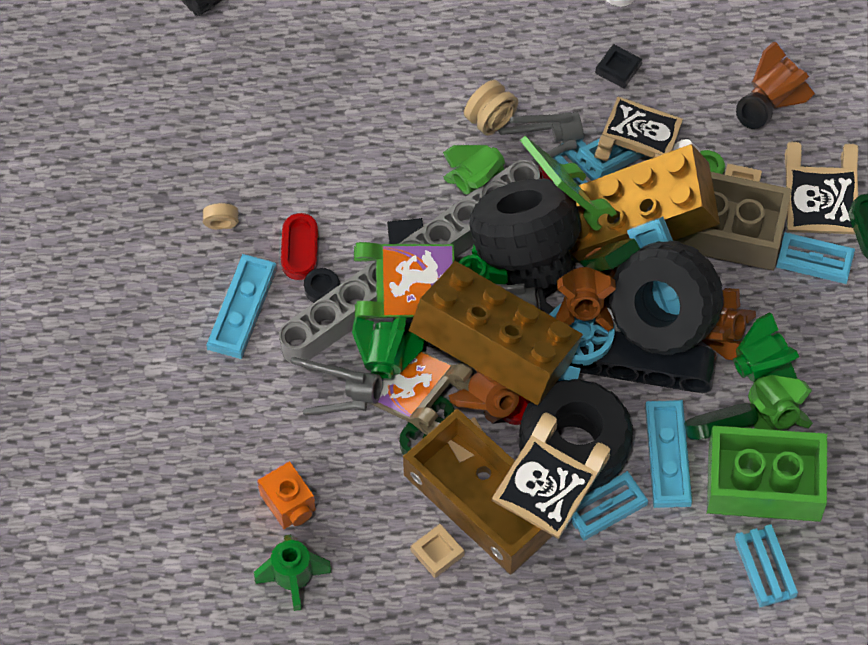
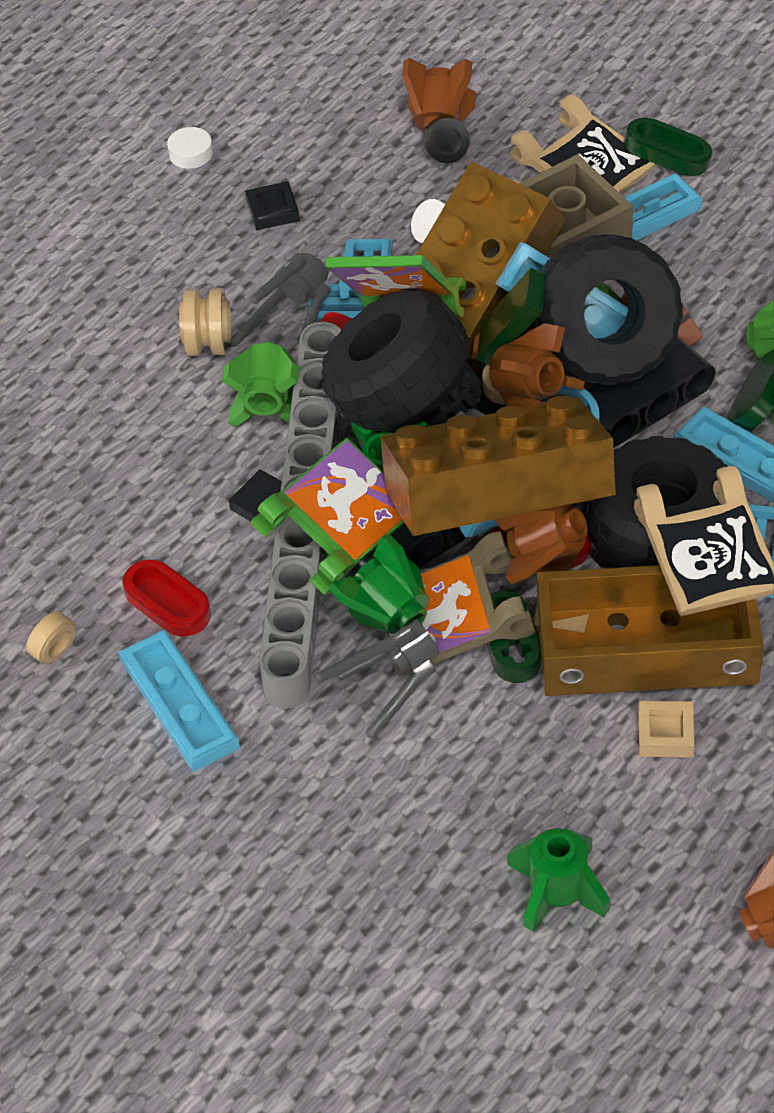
camera: 45 degrees left, 10 degrees down
(287, 496) = (465, 815): orange brick -> none
(319, 283) = (237, 611): black tile -> none
(638, 130) = (370, 229): flag -> none
(764, 353) = (726, 300): green brick -> none

